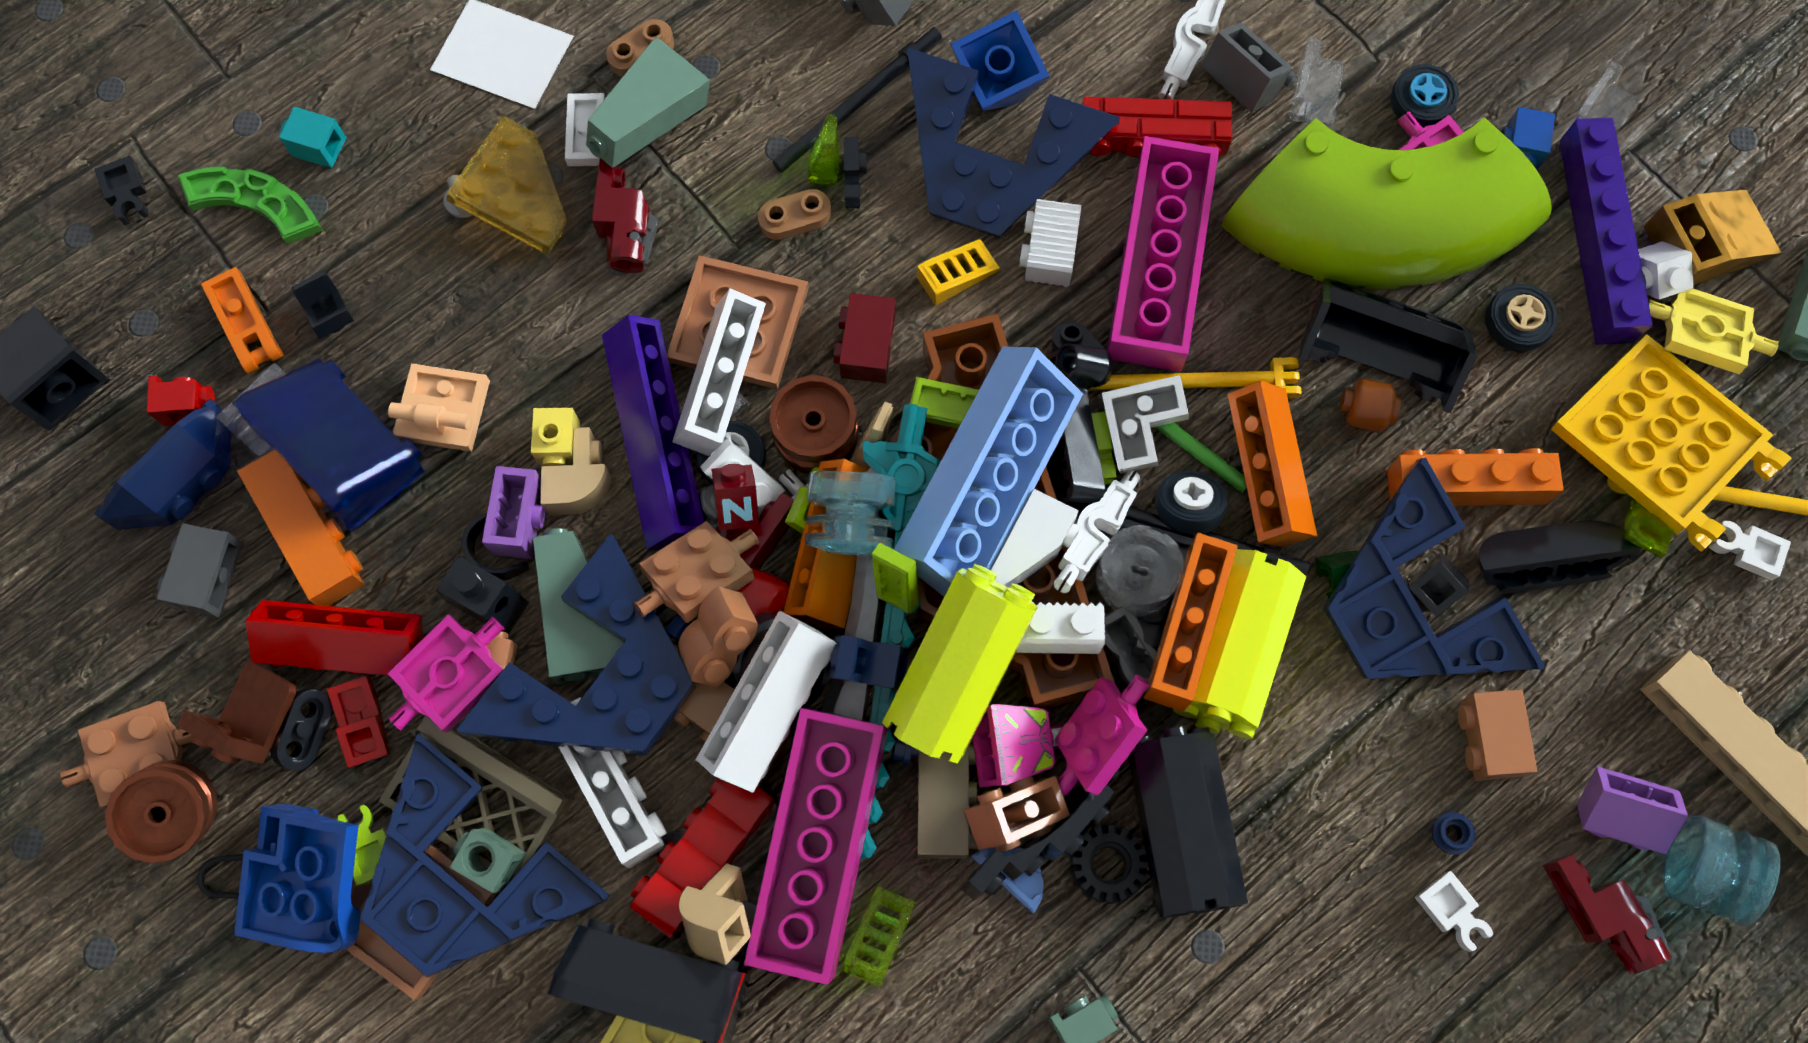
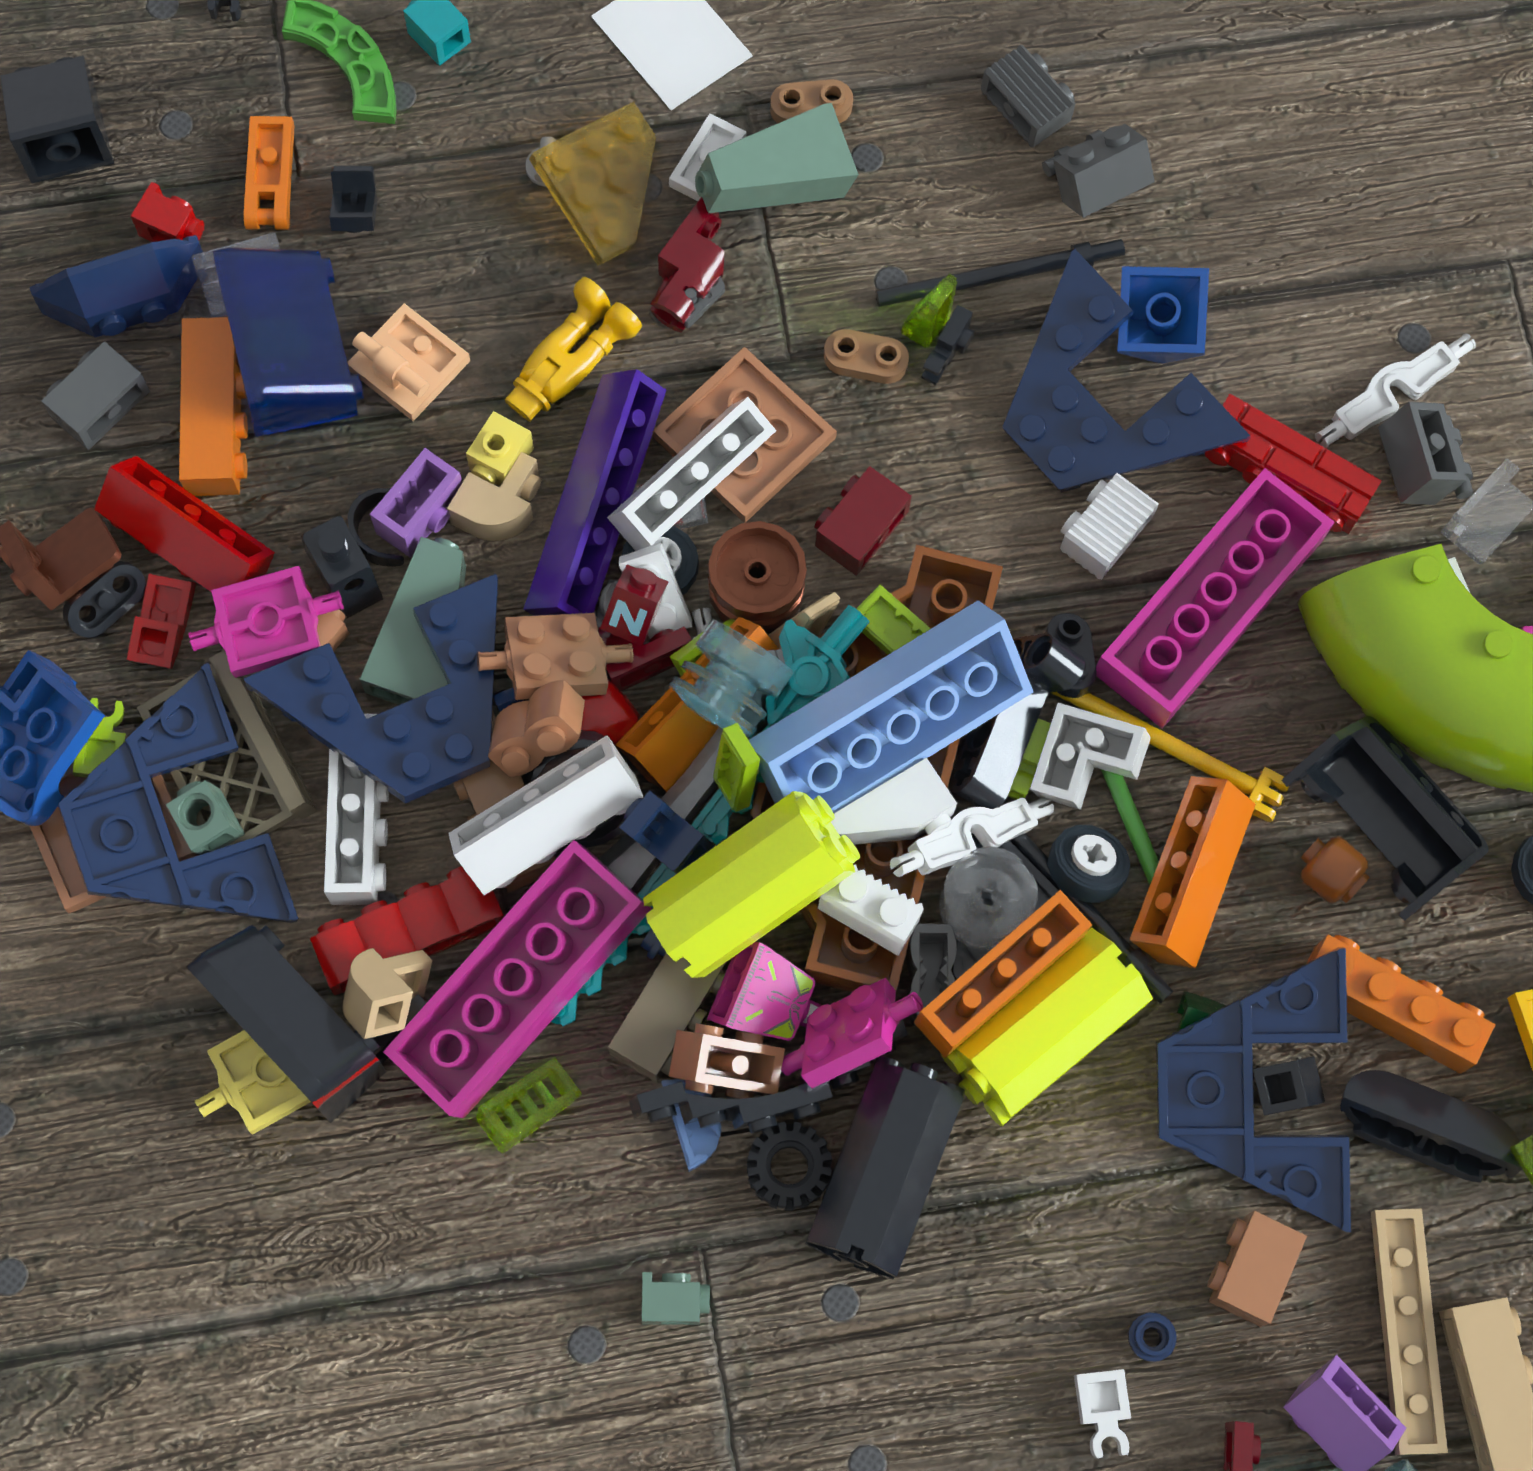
camera: 25 degrees right, 0 degrees up
(561, 353) = (555, 372): none -> yellow piece
(941, 292) = (980, 516): yellow slope -> none
(1631, 714) = (1409, 1330): none -> tan plate

